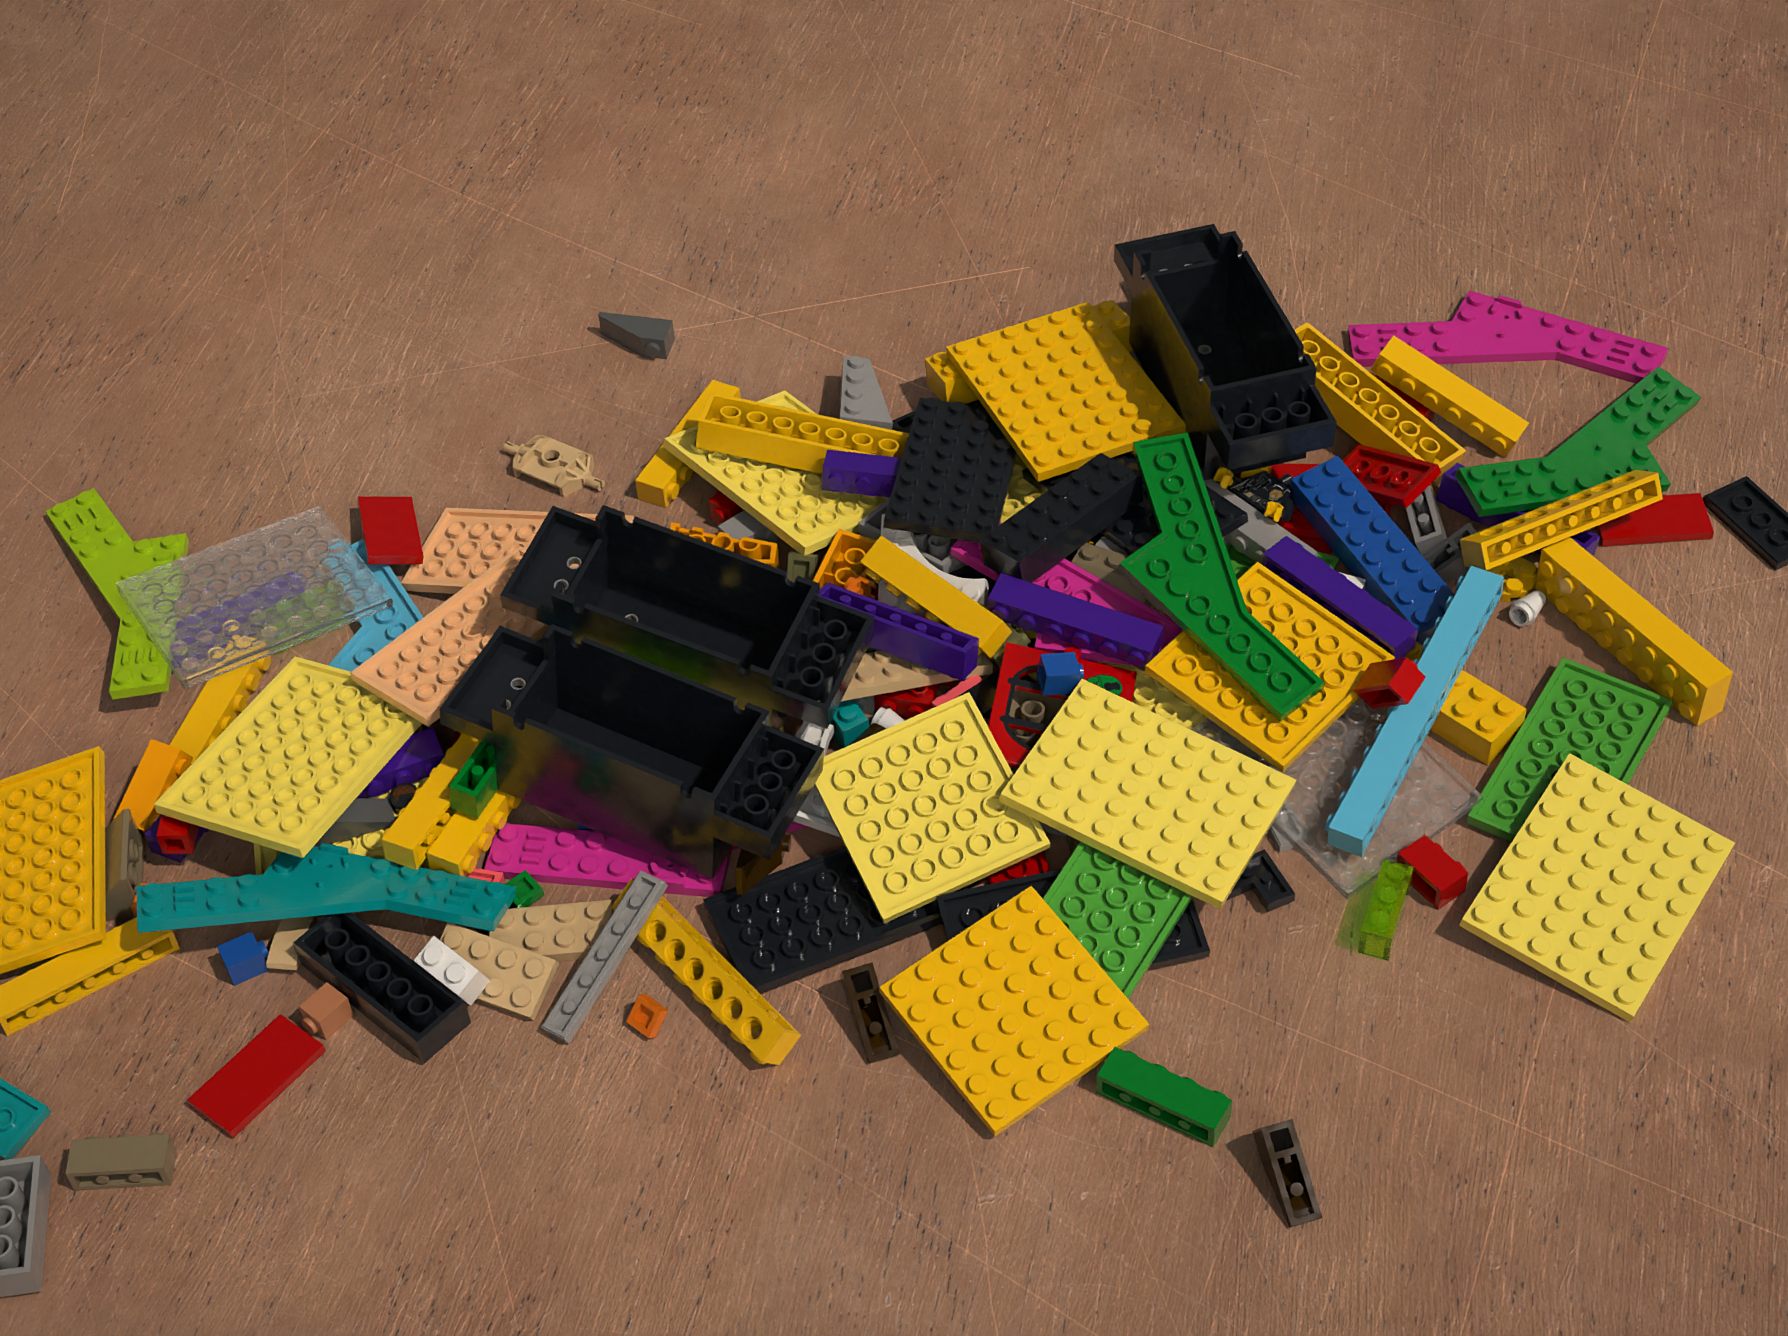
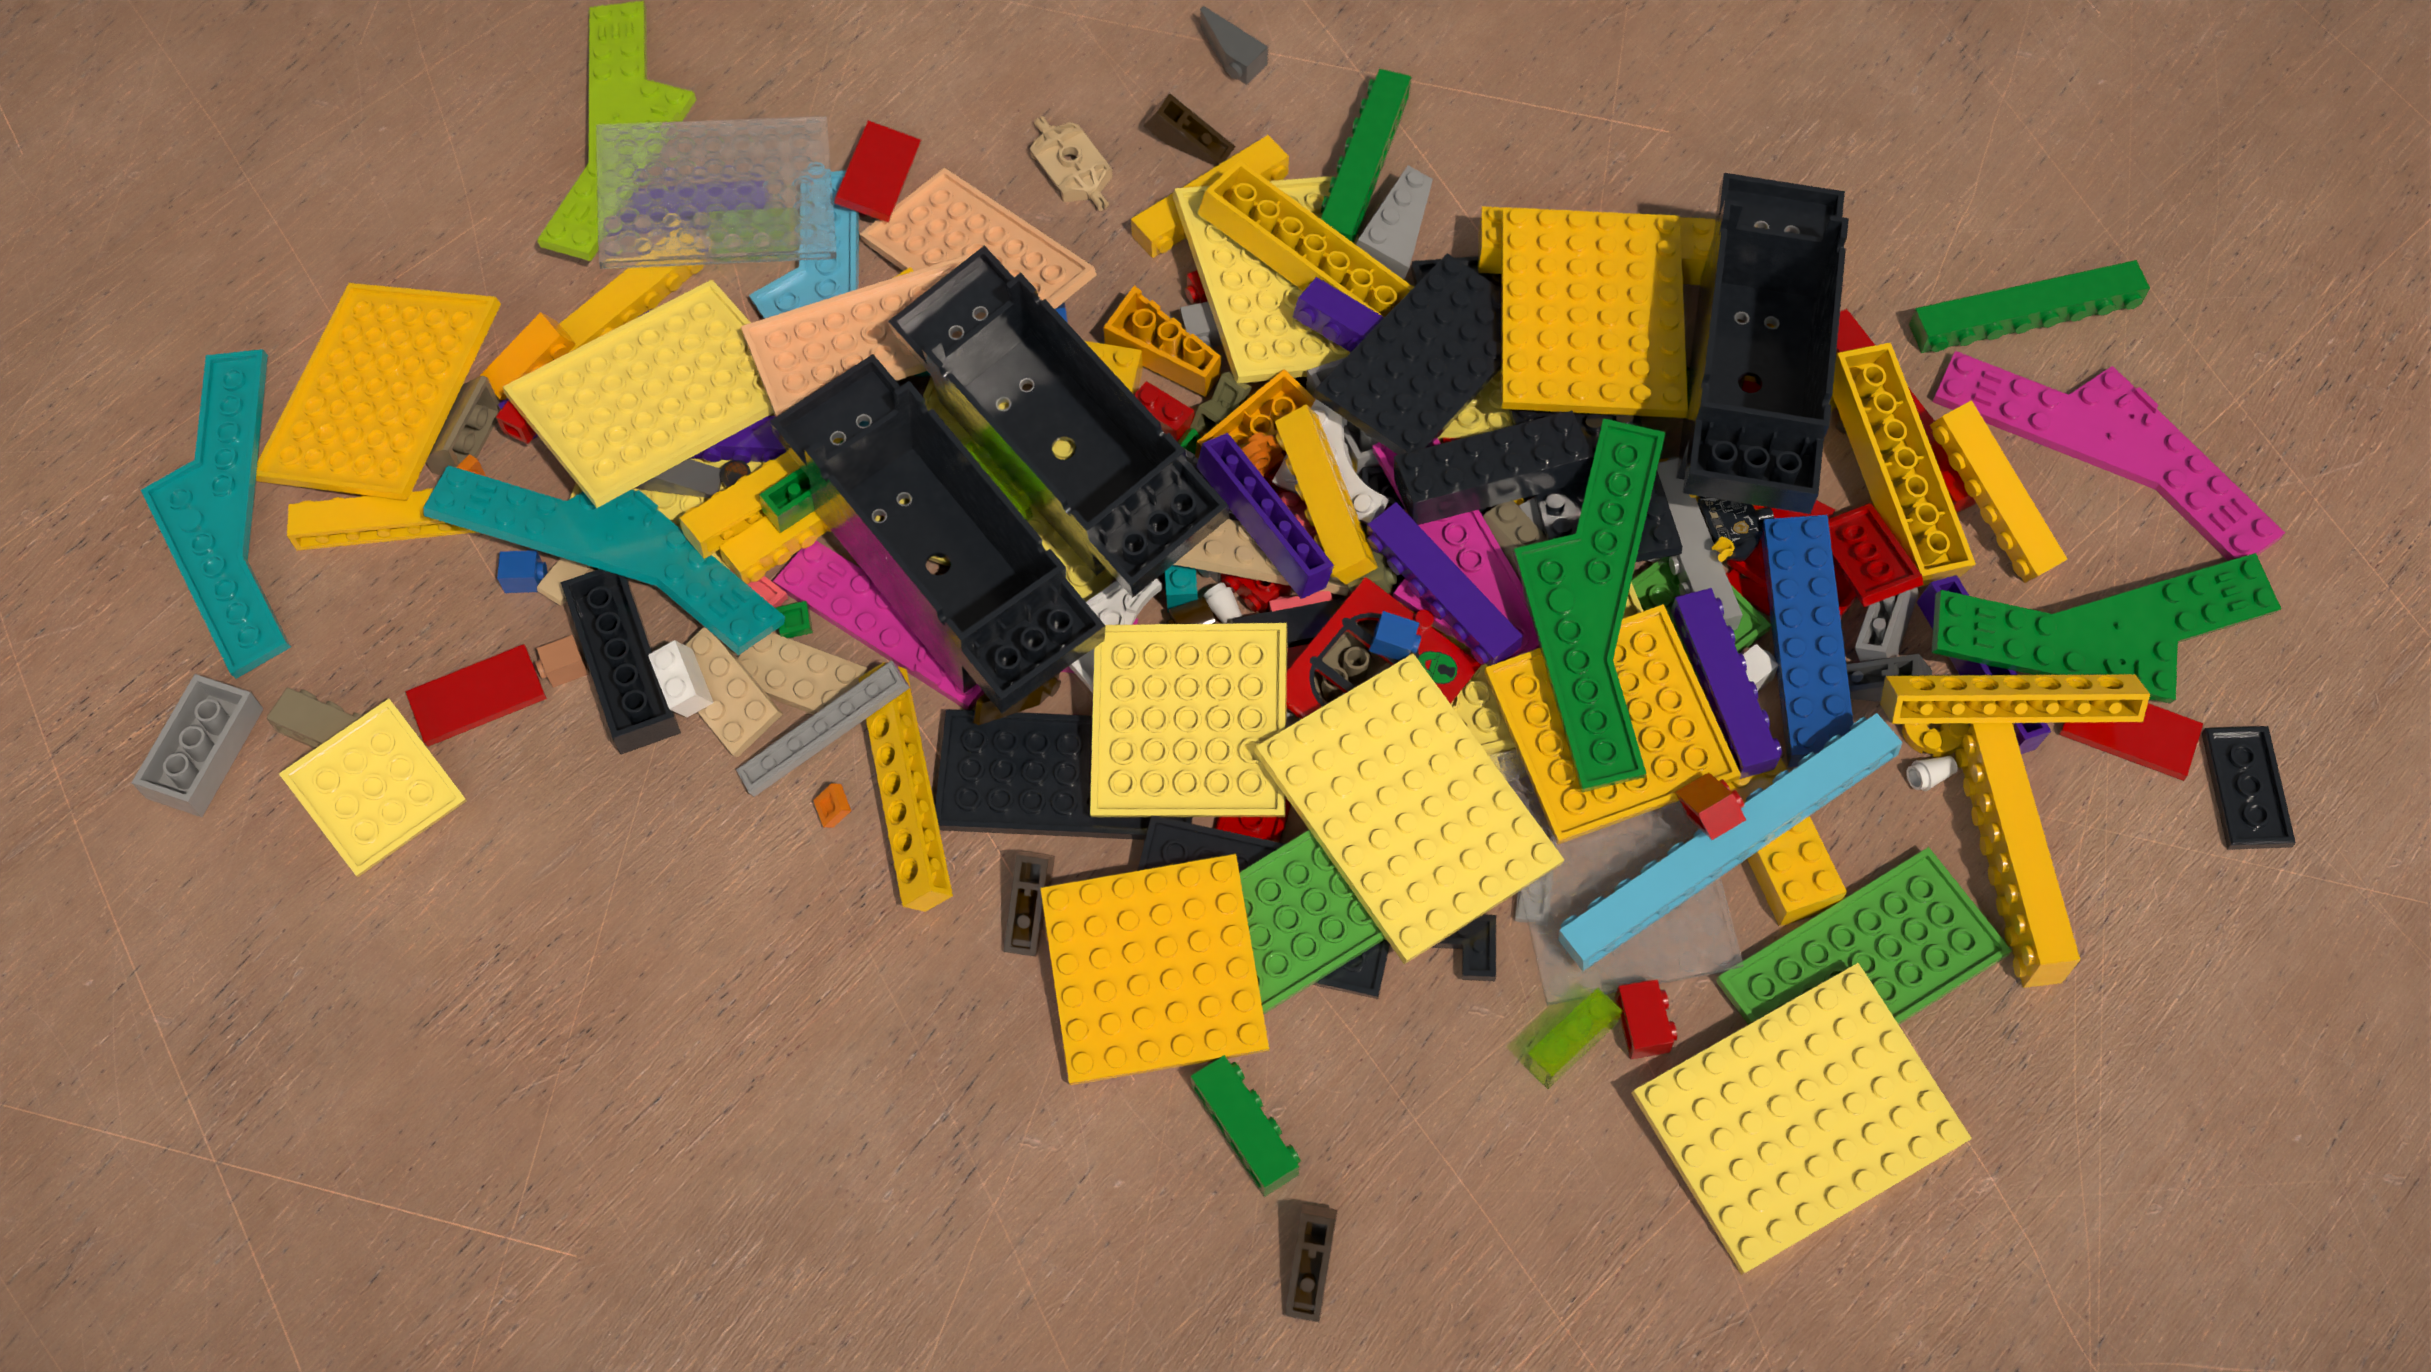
camera: 25 degrees right, 15 degrees up
(205, 1185) = (372, 787): none -> light yellow plate
(638, 405) = (1187, 132): none -> dark brown slope
(800, 358) = (1366, 152): none -> green brick
(1382, 275) = (2029, 306): none -> green brick

